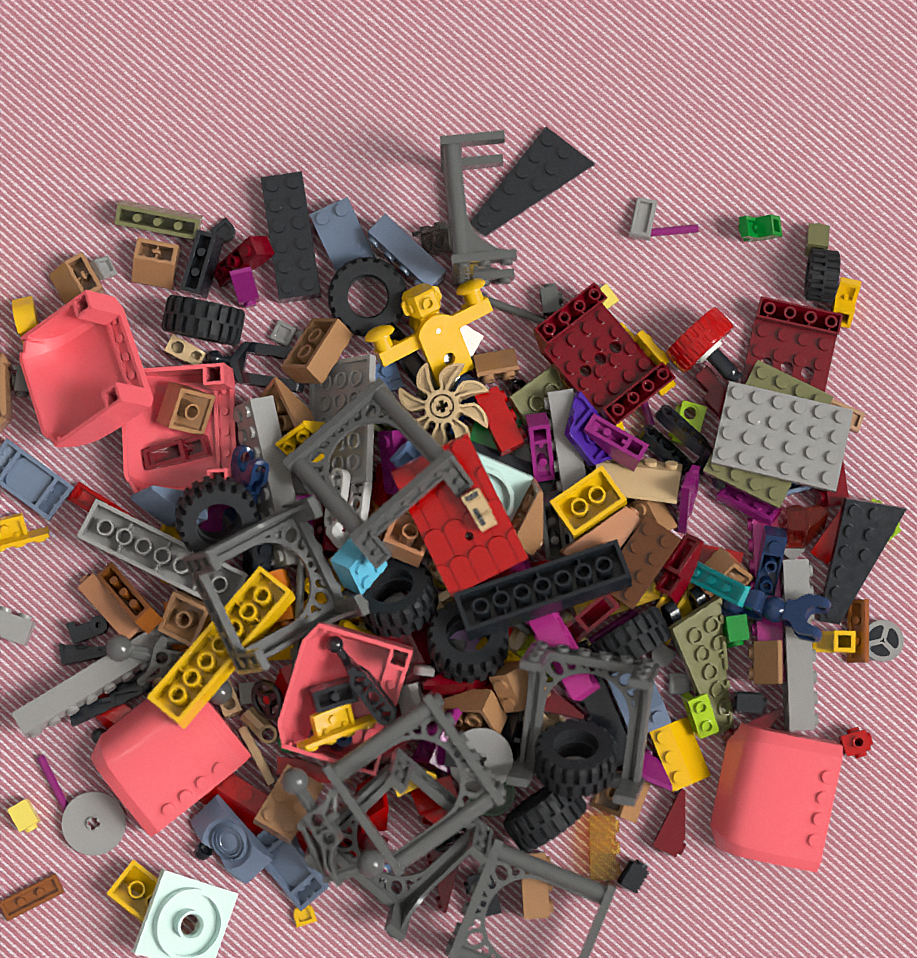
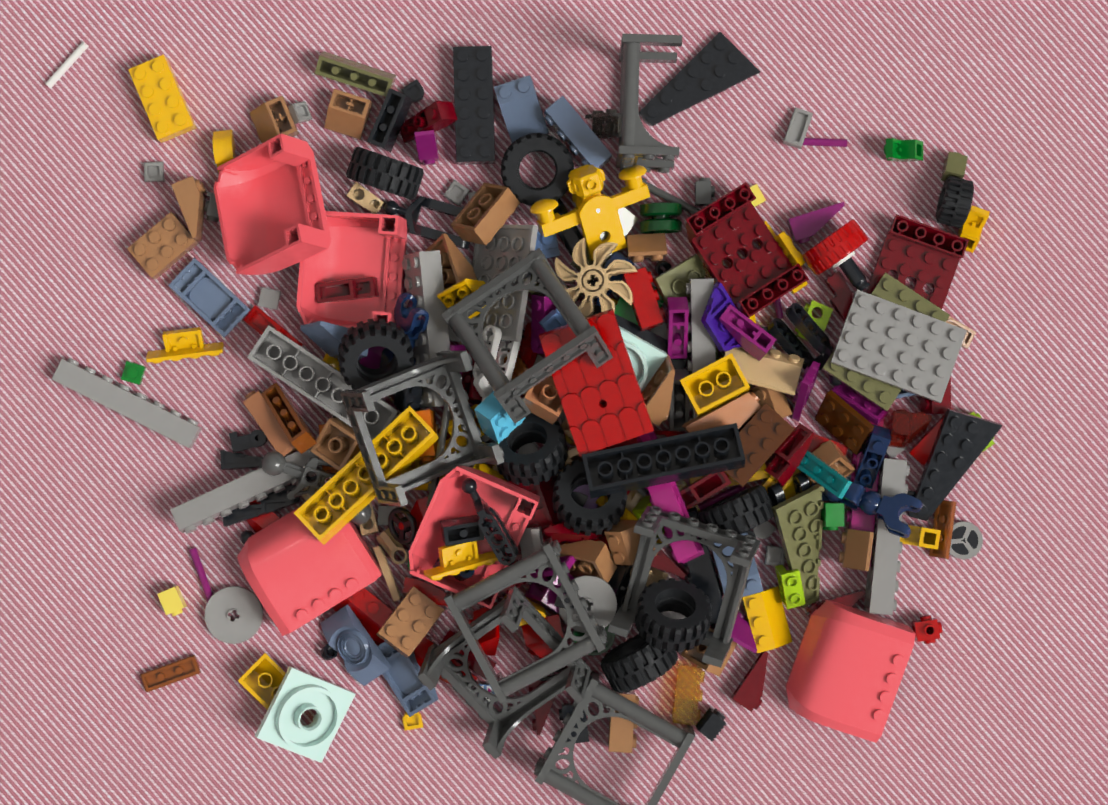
camera: 10 degrees right, 5 degrees up
(93, 472) = (269, 298): none -> light grey tile
(185, 408) = (359, 251): medium nougat slope -> none
(369, 863) = (476, 688): dark grey piece -> none
(424, 670) = (546, 517): light grey tile -> none
(479, 509) = (615, 381): tan leg -> none
(507, 332) = (660, 214): none -> dark green wheel
(667, 320) = (808, 224): none -> magenta slope
(734, 527) = (844, 422): none -> reddish brown plate
(749, 703) = (835, 582): black brick -> none

